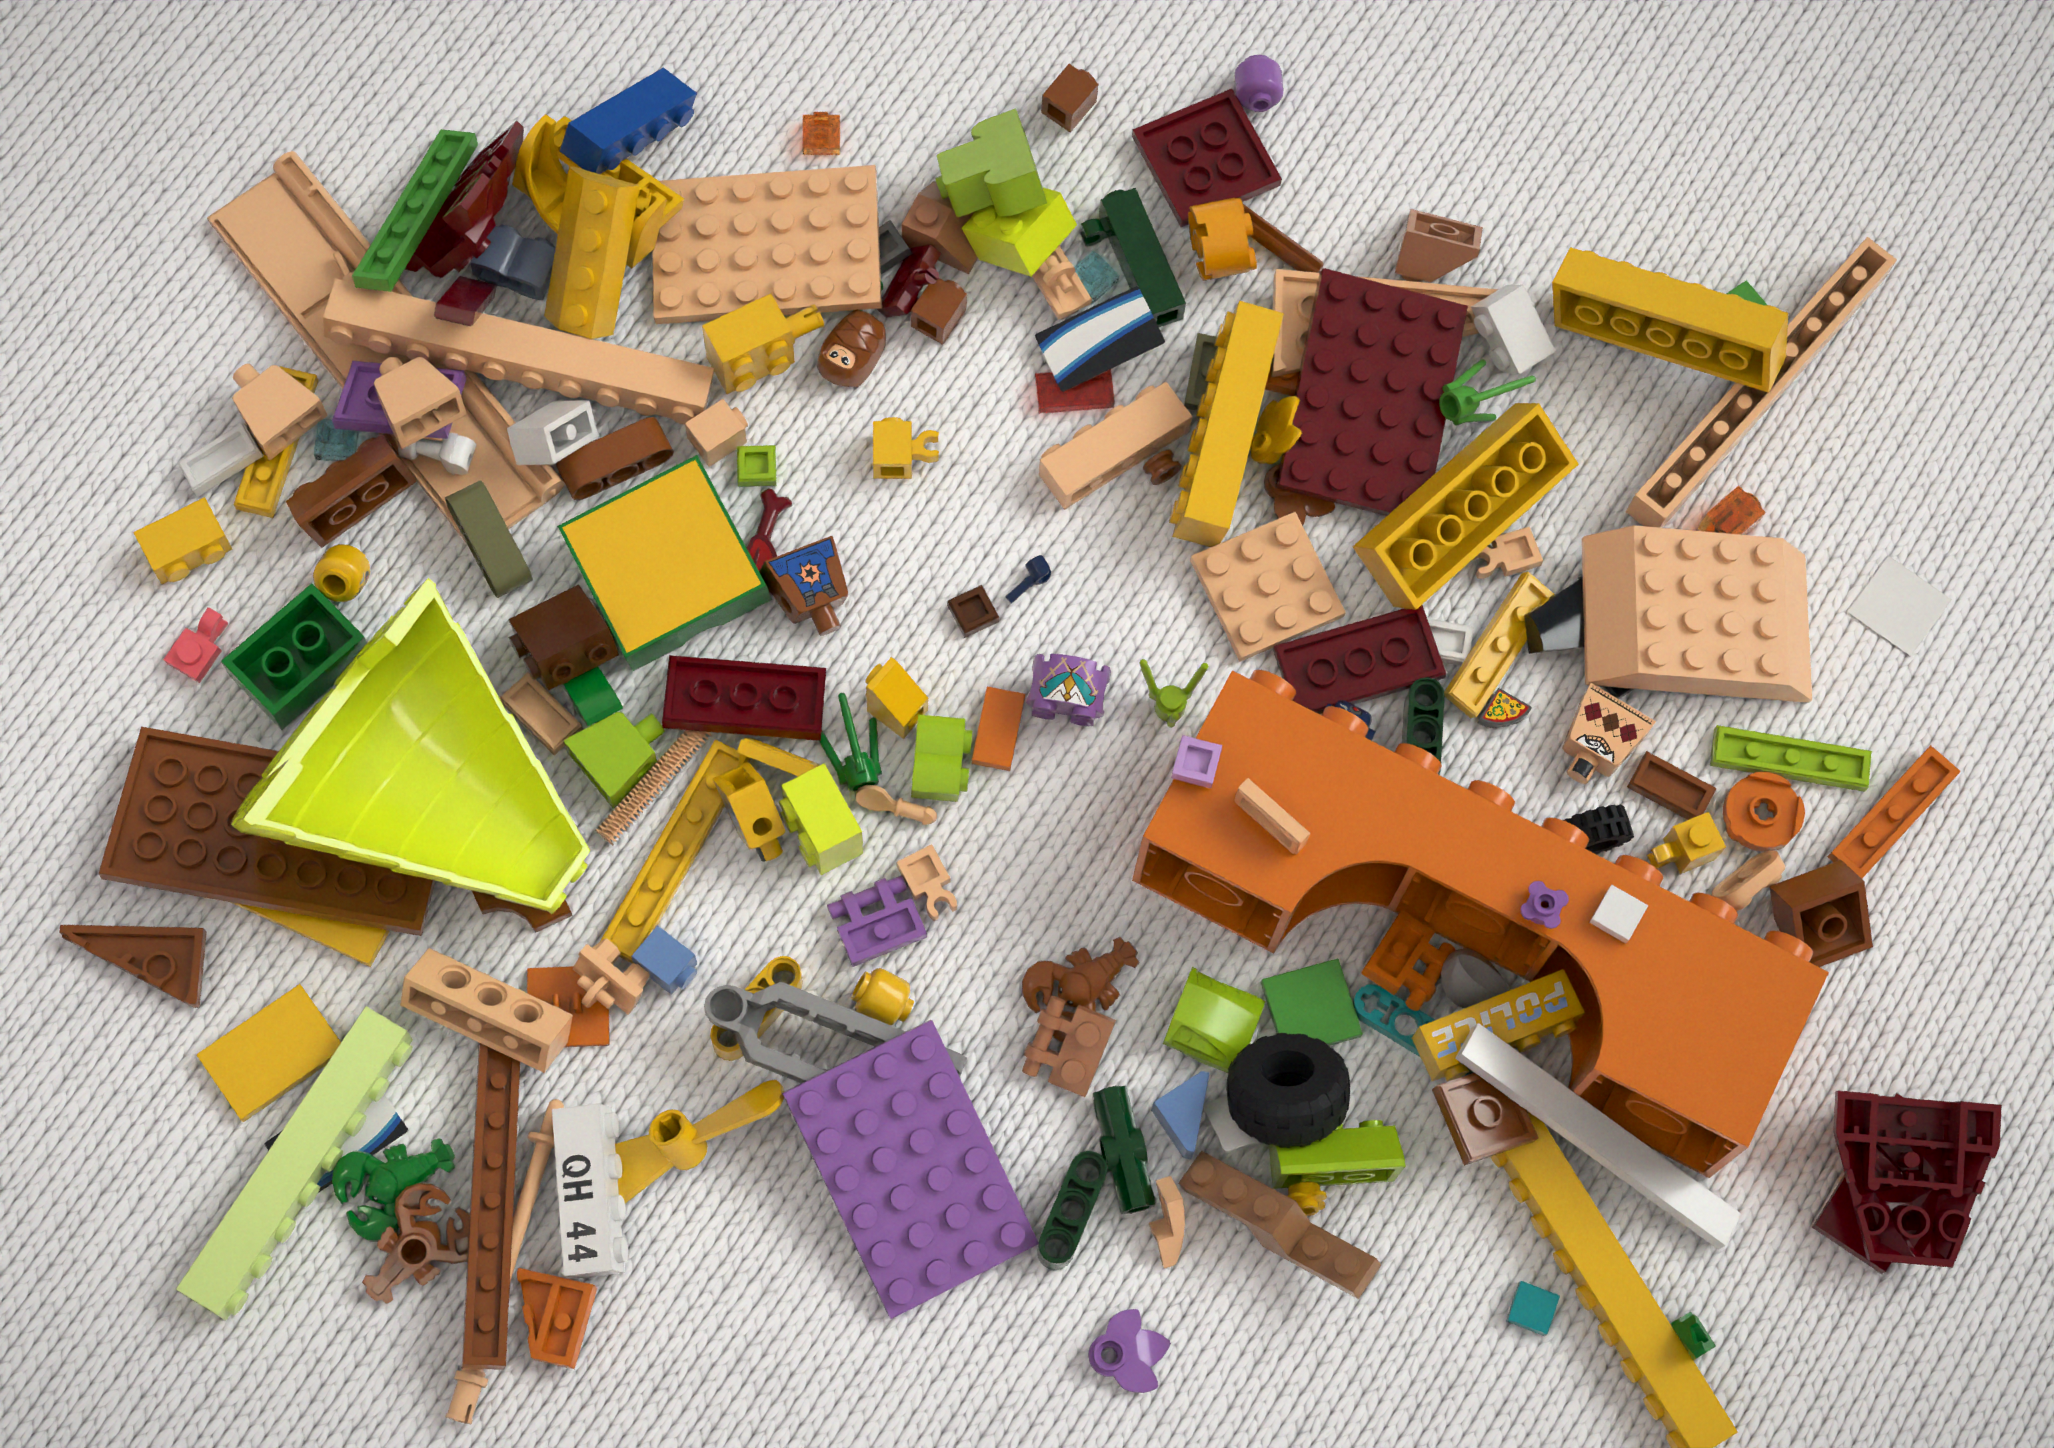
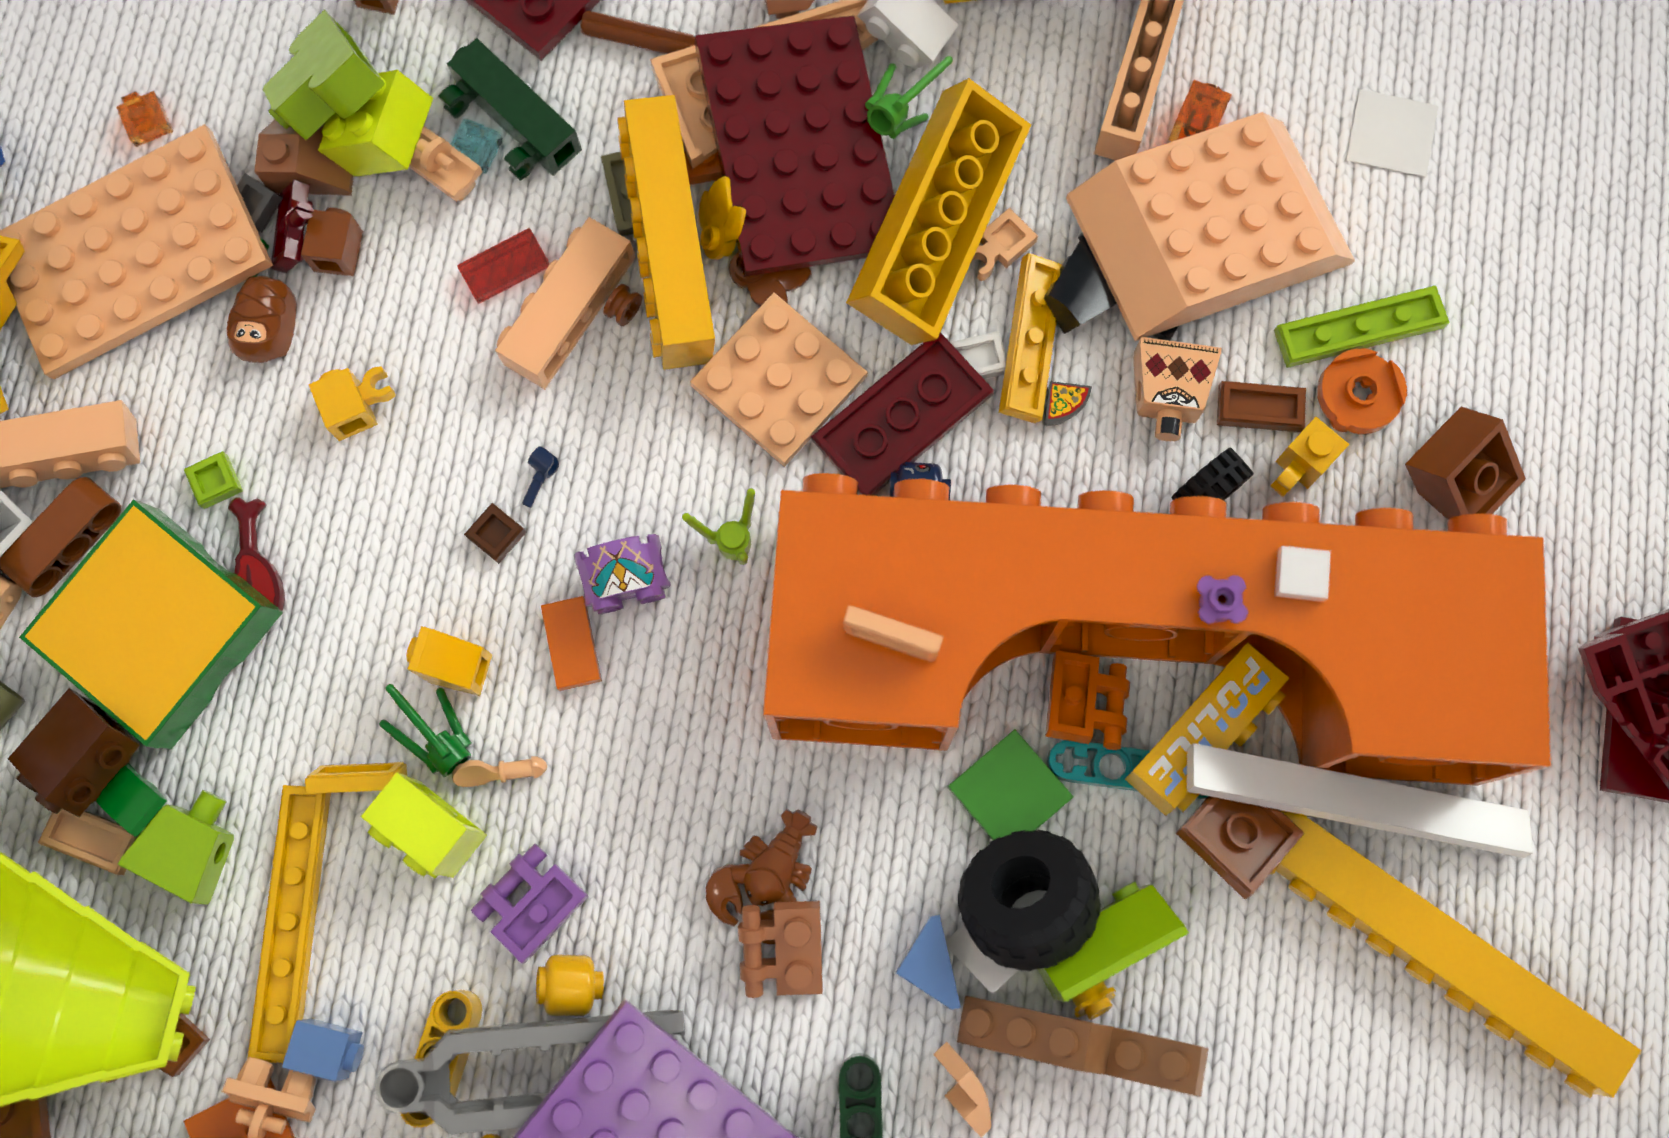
camera: 15 degrees left, 5 degrees up
(650, 784) = (237, 860): light nougat axle -> none
(717, 432) = (155, 463): light nougat brick -> none
(744, 698) = (293, 730): dark red tile -> none
(751, 810) = (346, 849): yellow torso -> none
(755, 341) = (153, 355): yellow brick -> none
(808, 584) = (311, 580): torso -> none
(926, 876) = (560, 833): light nougat plate -> none
(939, 758) = (522, 702): lime brick -> none
(1099, 338) = (505, 202): sticker -> none
(1123, 1149) = (886, 1034): dark green piece -> none
(1196, 761) = (786, 608): lavender plate -> none
(1213, 1021) = (919, 852): lime slope -> none
(1220, 238) = (582, 51): light orange brick -> none
(1424, 718) = (991, 445): dark green beam -> none
(1470, 978) = (1158, 691): light grey piece -> none
(1533, 1308) = (1370, 1006): teal tile -> none
(1693, 1335) = (1549, 968): green slope -> none
(1750, 878) = (1380, 466): light nougat plate -> none
(1895, 812) = (1487, 336): orange plate -> none

